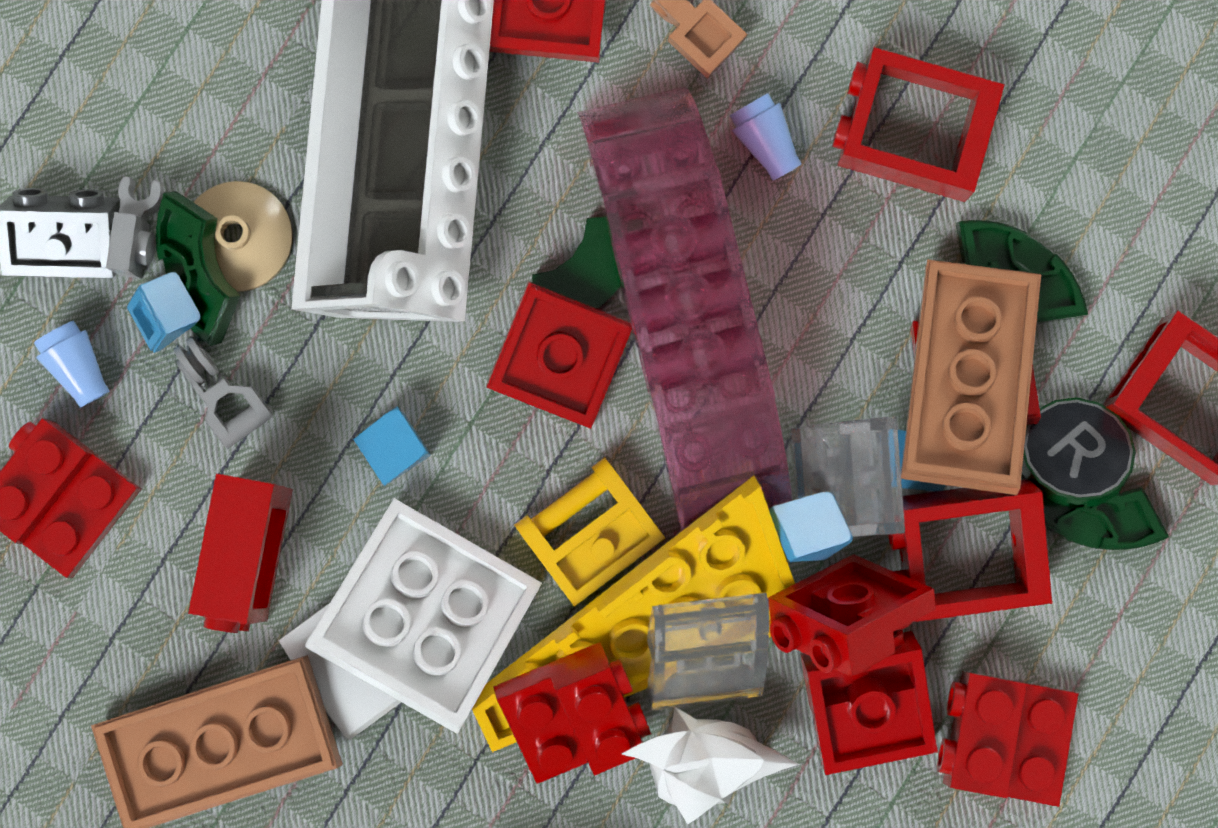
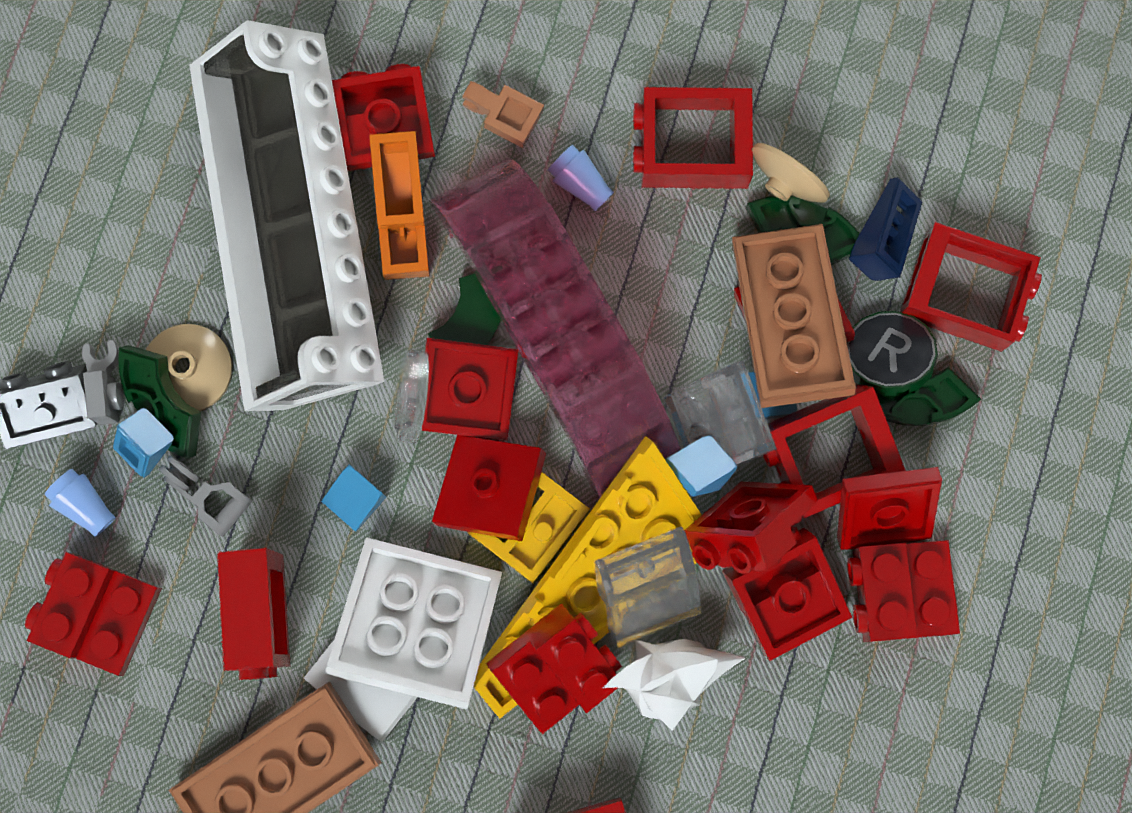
camera: 20 degrees left, 5 degrees down
(492, 348) = (412, 396): none -> clear tile
(539, 111) = (399, 205): none -> orange slope
(554, 480) = (489, 487): none -> red plate
(1015, 205) = (788, 175): none -> tan dish
(1018, 638) = (888, 508): none -> red plate
(1107, 321) = (880, 246): none -> dark blue slope

